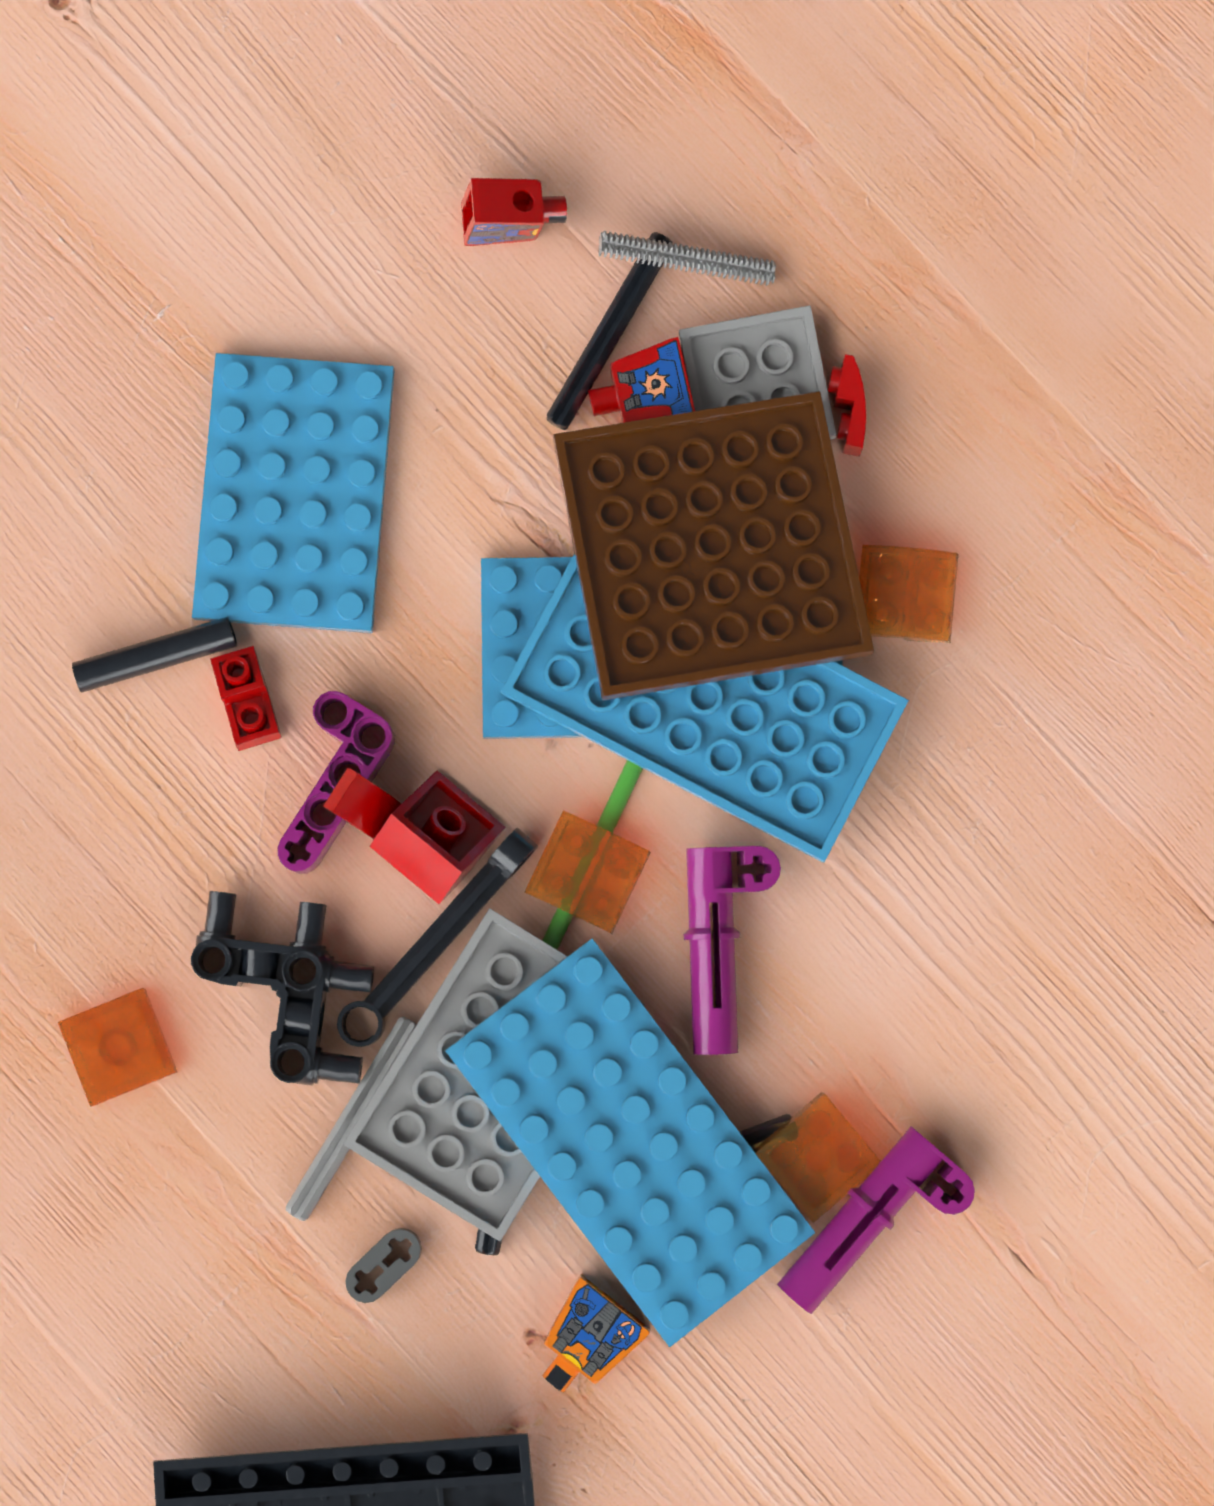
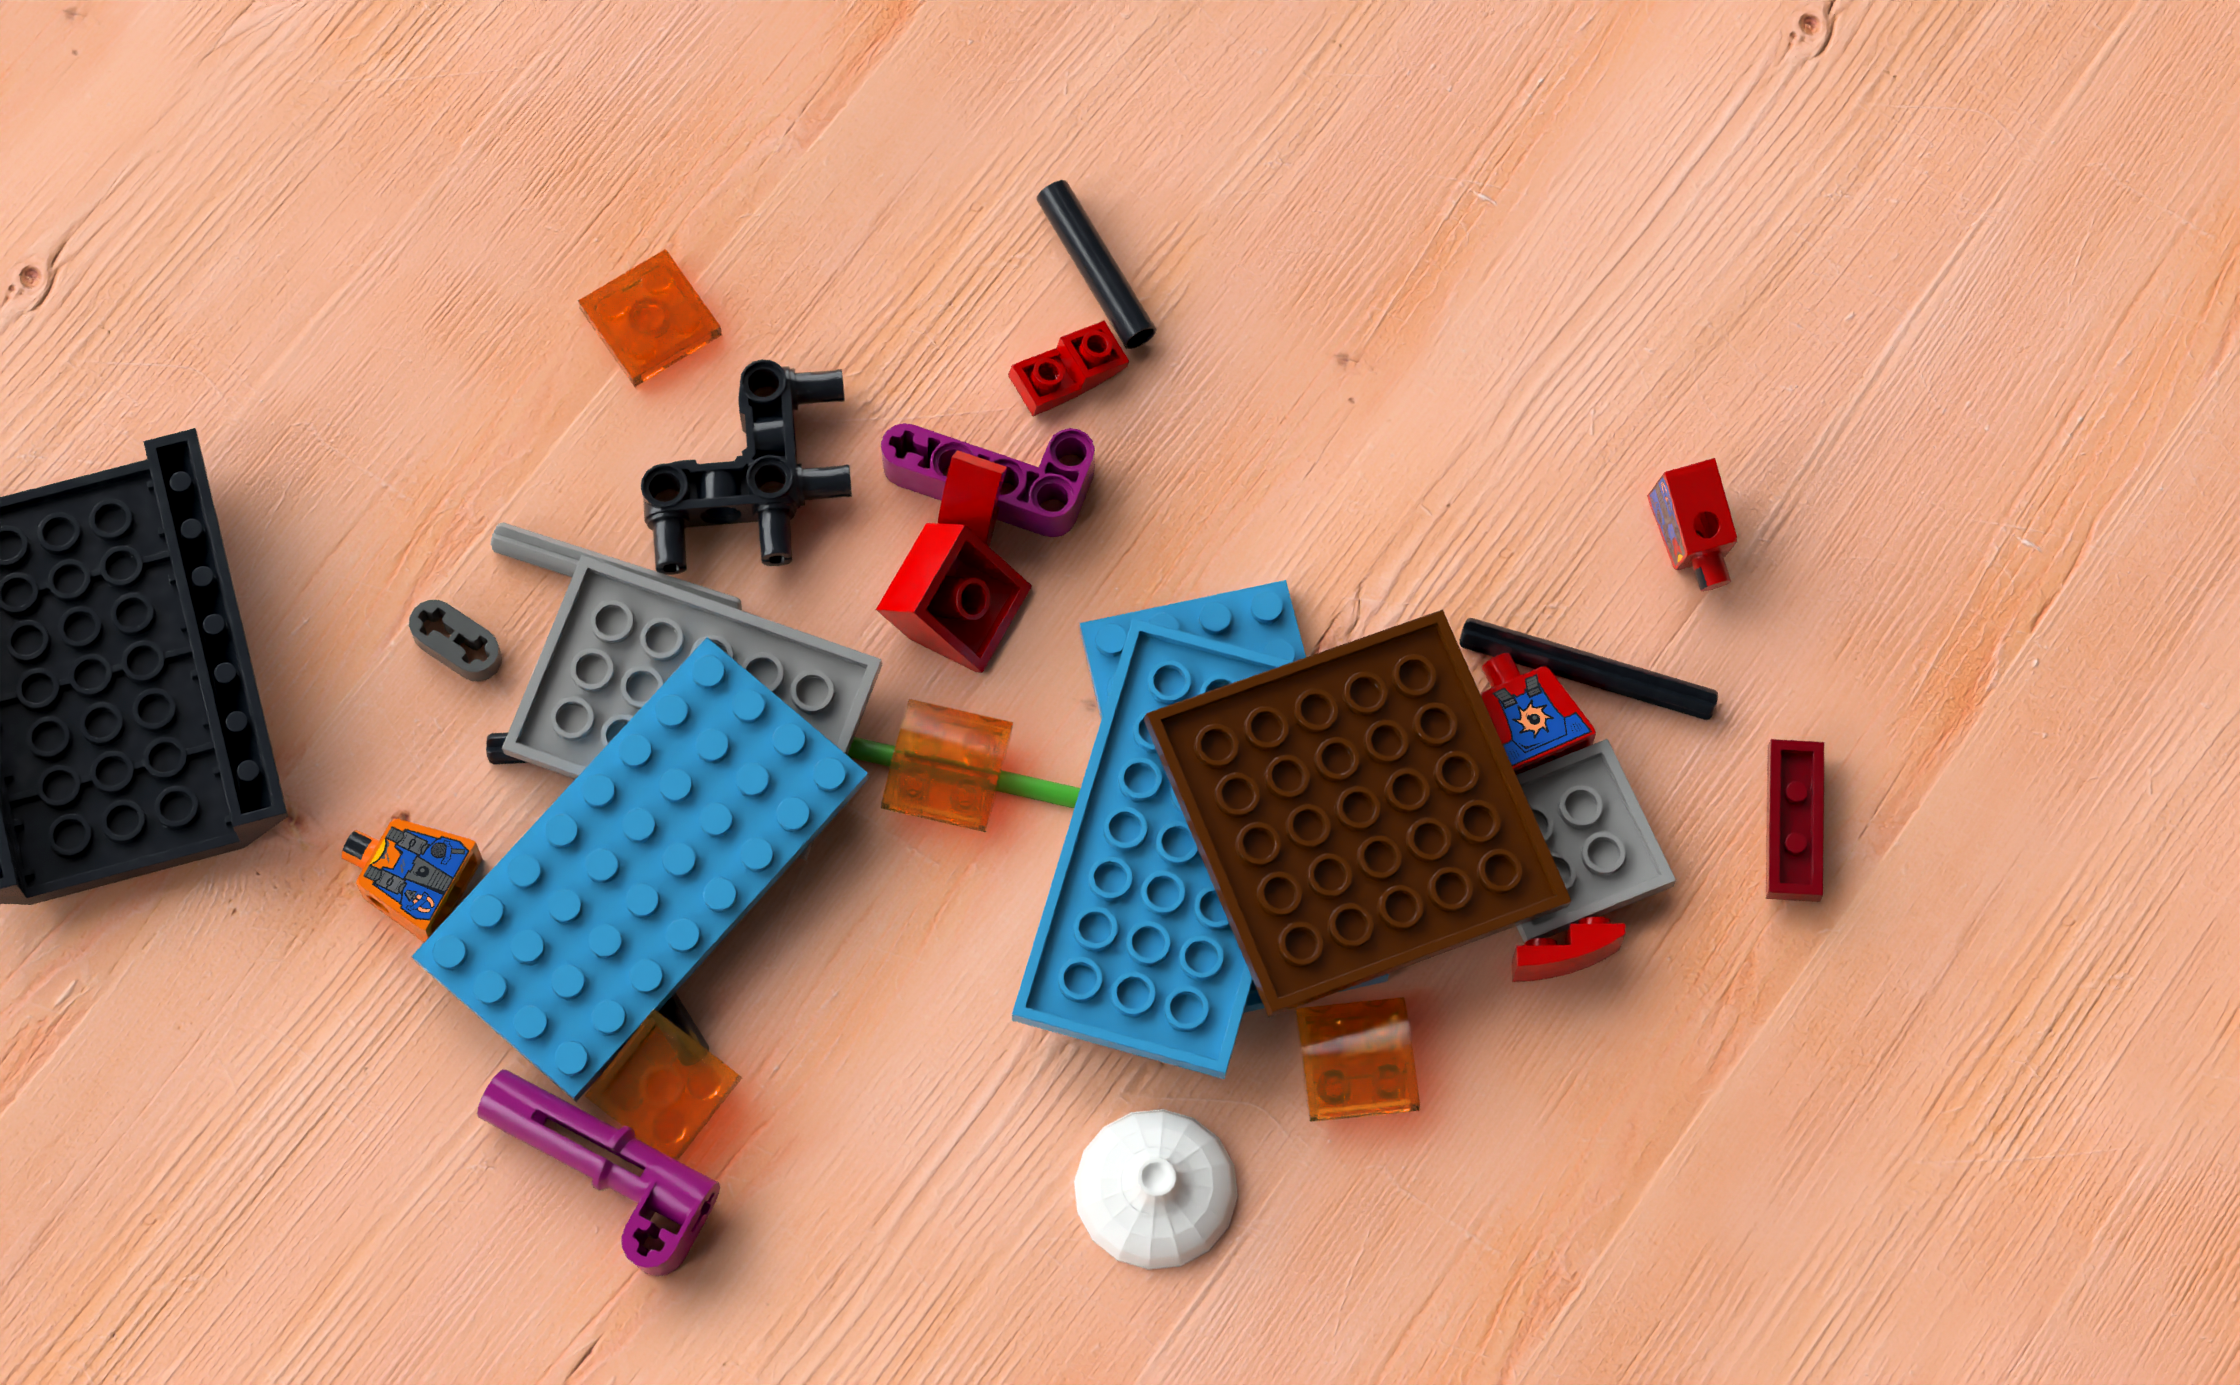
camera: 75 degrees right, 15 degrees down
(293, 493) = (1314, 372): dark azure plate -> none
(500, 867) = (940, 674): black piece -> none
(687, 257) = (1693, 730): light grey axle -> none
(711, 882) = (961, 902): magenta piece -> none
(776, 198) = (1795, 820): none -> dark red plate
(973, 777) = (1155, 1189): none -> white hat

